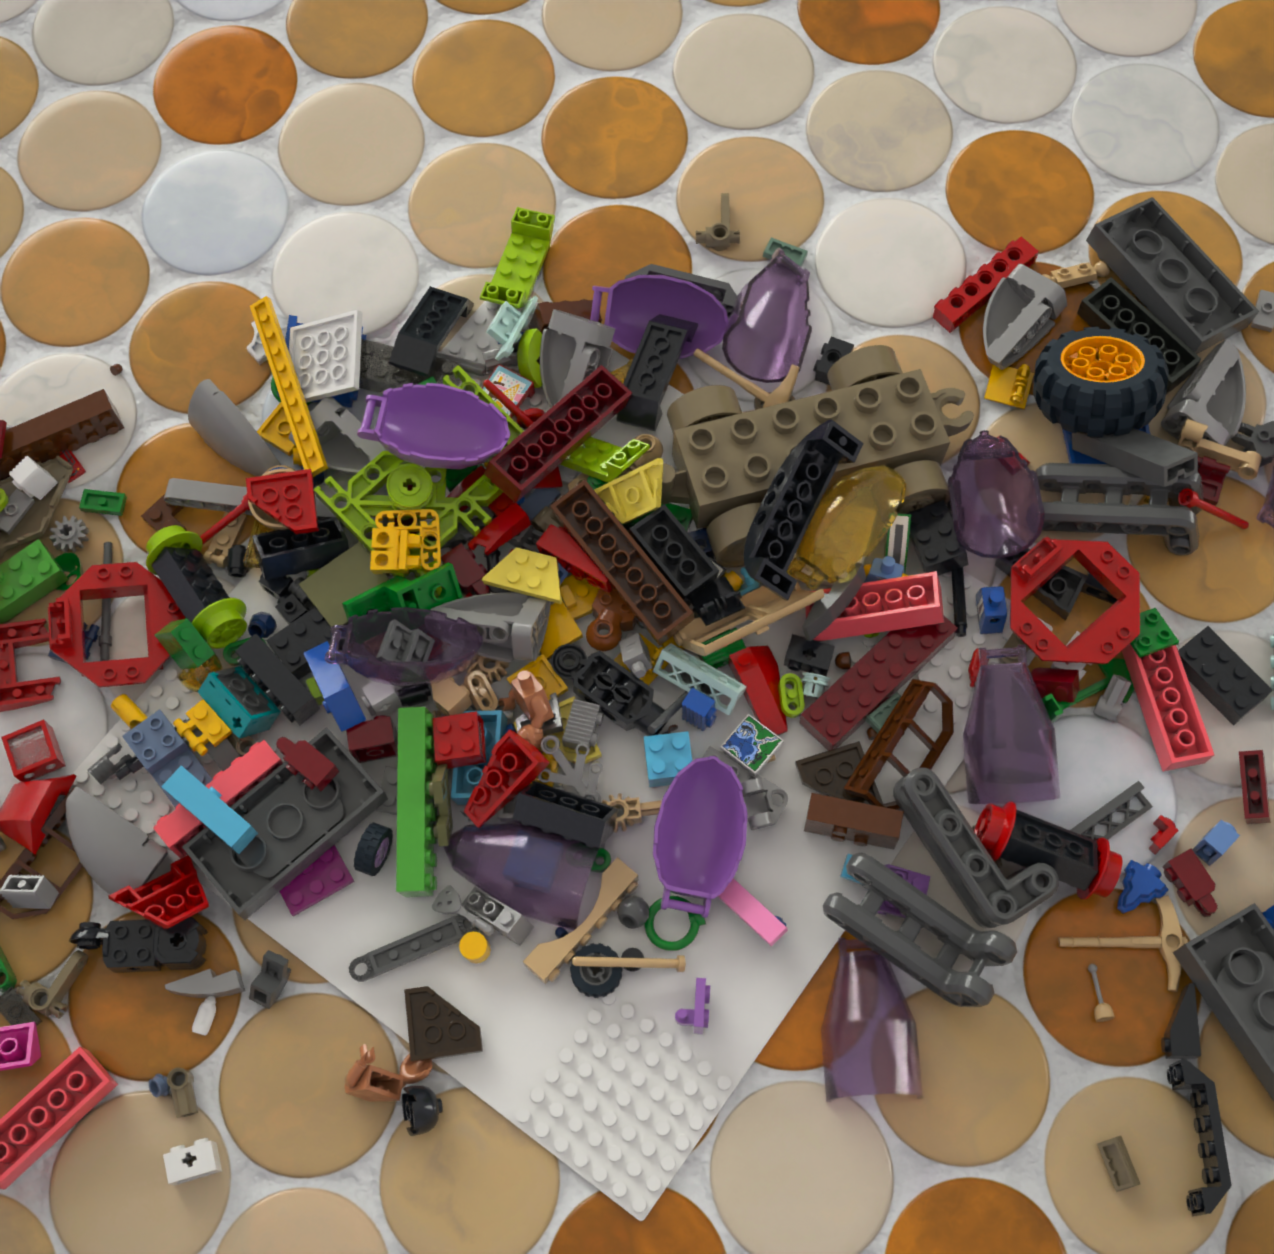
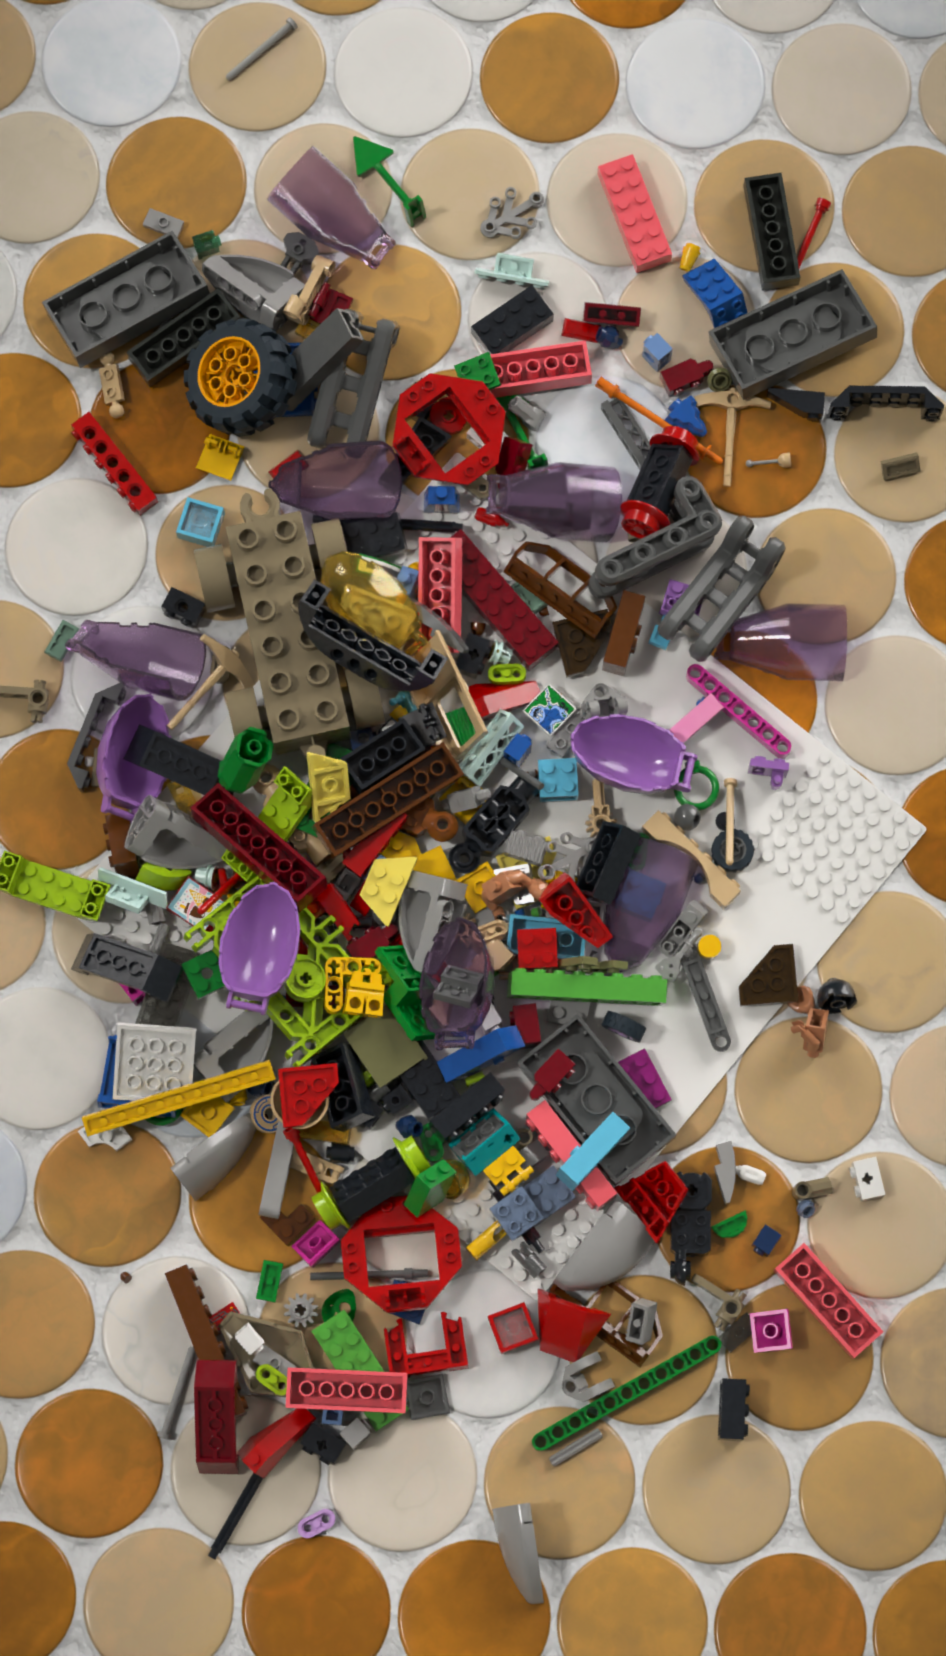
camera: 90 degrees left, 10 degrees up
(122, 1038) = (765, 1241): none -> dark blue brick
(133, 541) = (316, 1244): none -> dark pink slope
(141, 996) = (732, 1226): none -> green plate
(271, 979) = (725, 1117): dark grey brick -> none
(536, 400) = (208, 876): none -> light aqua piece
(656, 410) = (245, 760): none -> green brick
(768, 979) = (741, 720): none -> dark pink beam
(934, 362) = (200, 522): none -> piece
(1020, 314) = (154, 438): light grey panel -> none
(1084, 608) = (451, 426): none -> red plate
(1156, 798) = (614, 392): none -> orange bar
(1166, 832) = (647, 390): red bracket -> none
(1190, 918) = (719, 379): none -> olive cone
(1191, 499) = (367, 320): red piece -> none
(1224, 788) = (609, 337): none -> dark blue rock
(1227, 757) = (580, 330): none -> red tile
(1251, 350) = (206, 238): none -> clear green brick

